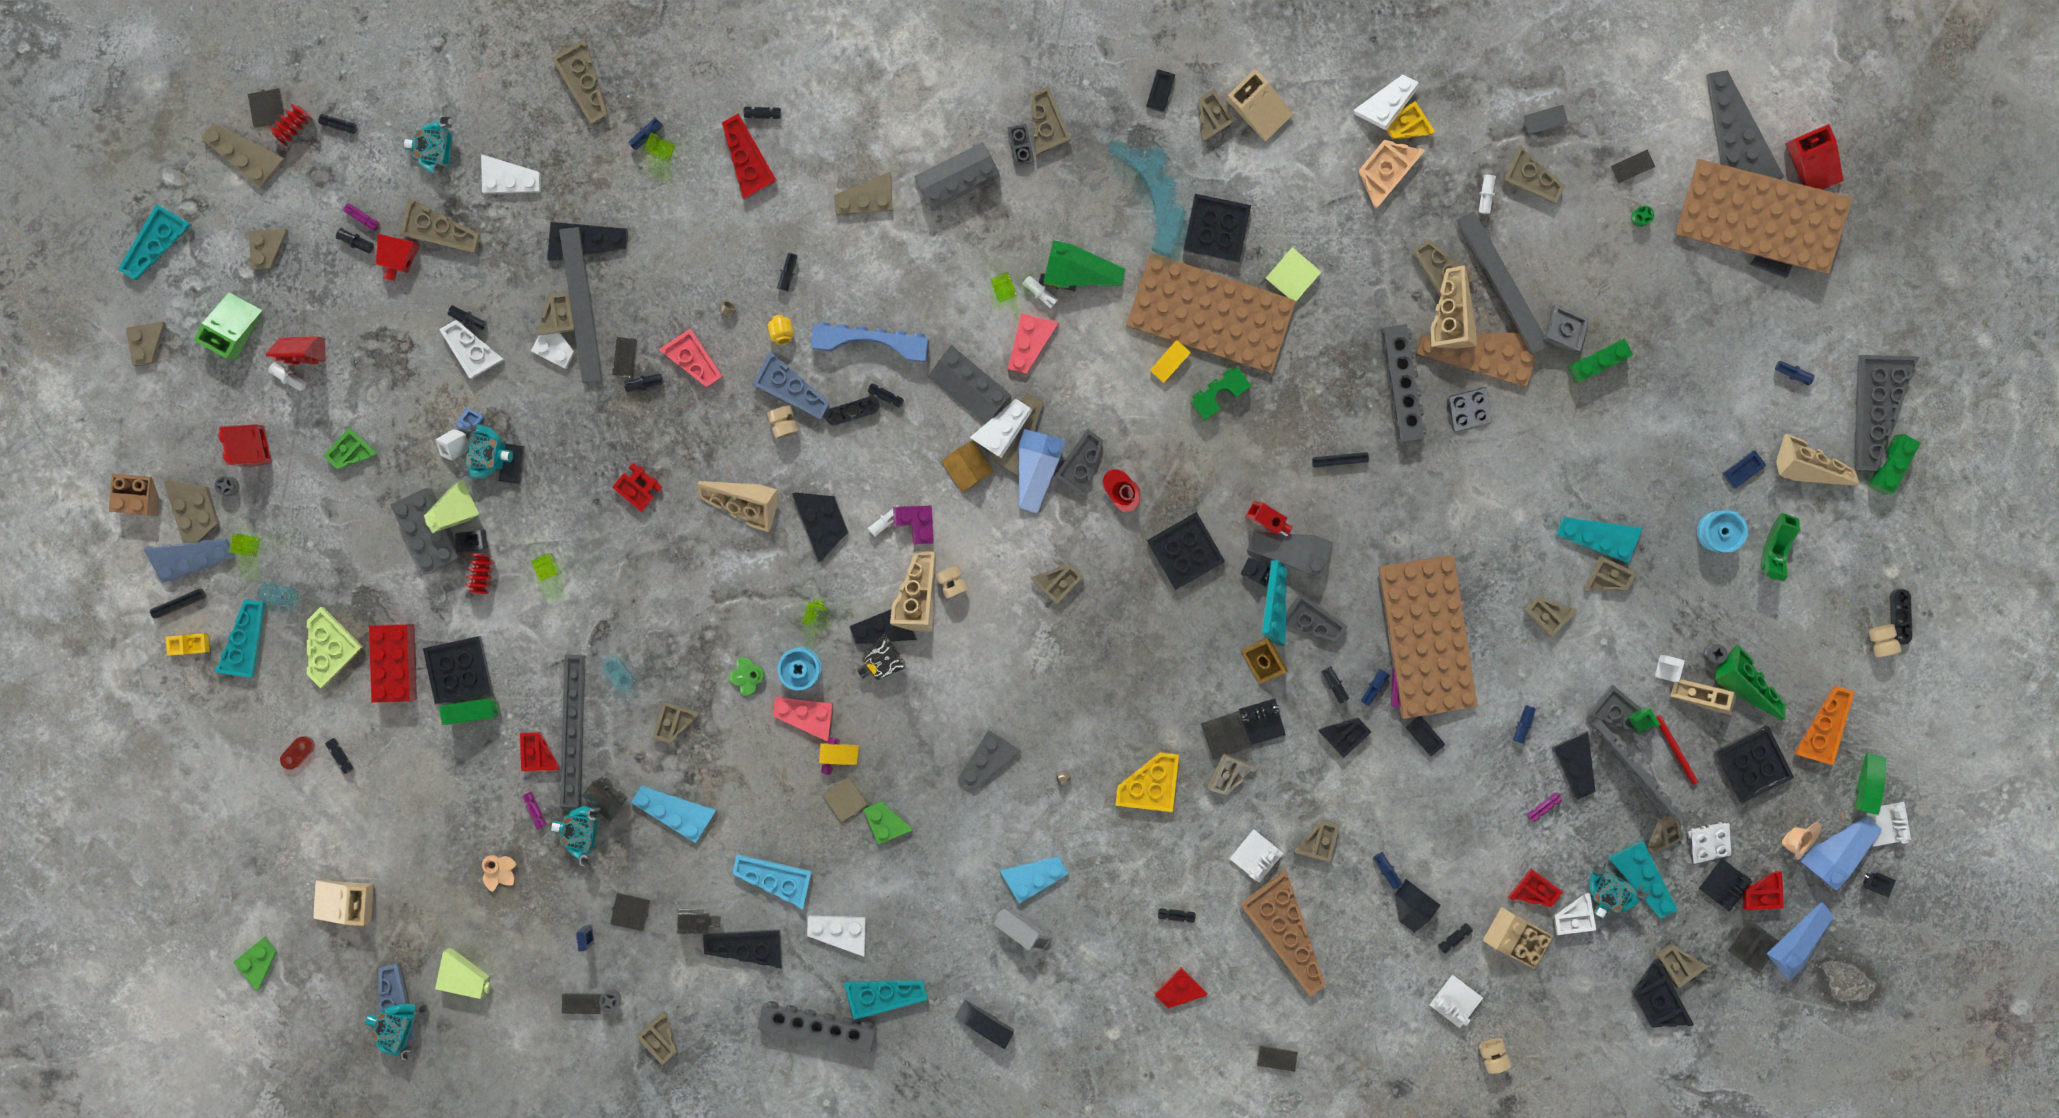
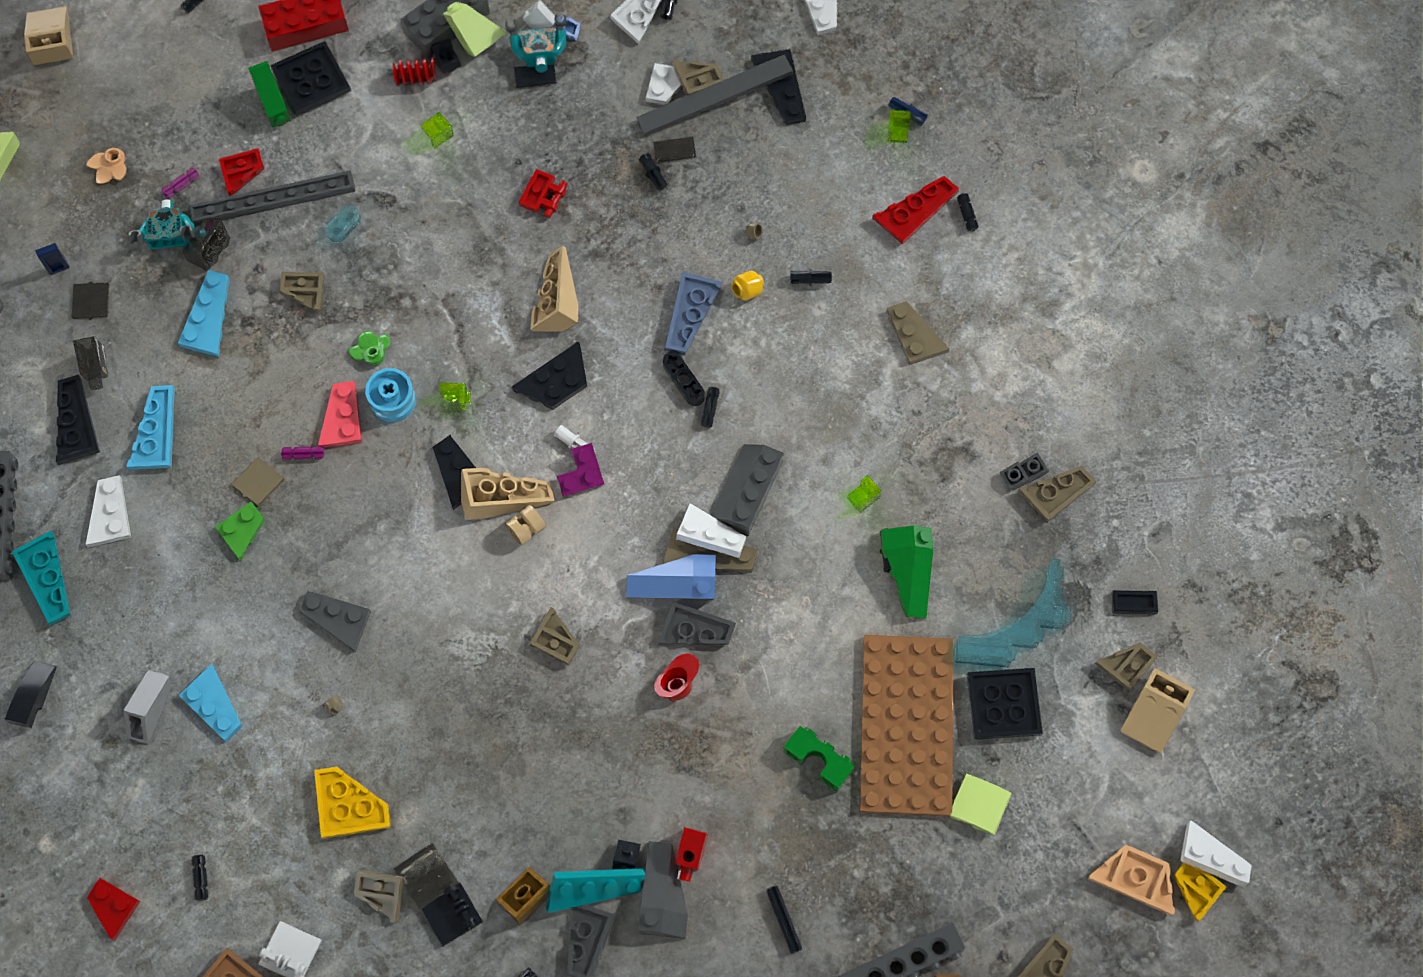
camera: 75 degrees right, 20 degrees down
(580, 76) = (941, 41): dark tan wing -> none
(692, 357) = (693, 211): coral wing -> none
(782, 422) = (651, 311): tan wheel -> none
(830, 338) = (754, 337): medium blue arch -> none
(838, 754) = (306, 459): yellow slope -> none
(881, 660) = (421, 475): clear smoke torso -> none
(957, 176) = (966, 417): dark grey slope -> none
(967, 466) = (658, 510): pearl gold slope -> none
(1029, 341) = (813, 537): coral wing -> none
(1040, 291) = (871, 534): white axle -> none
(1170, 361) = (839, 693): yellow slope -> none
(1185, 551) = (628, 770): black plate -> none

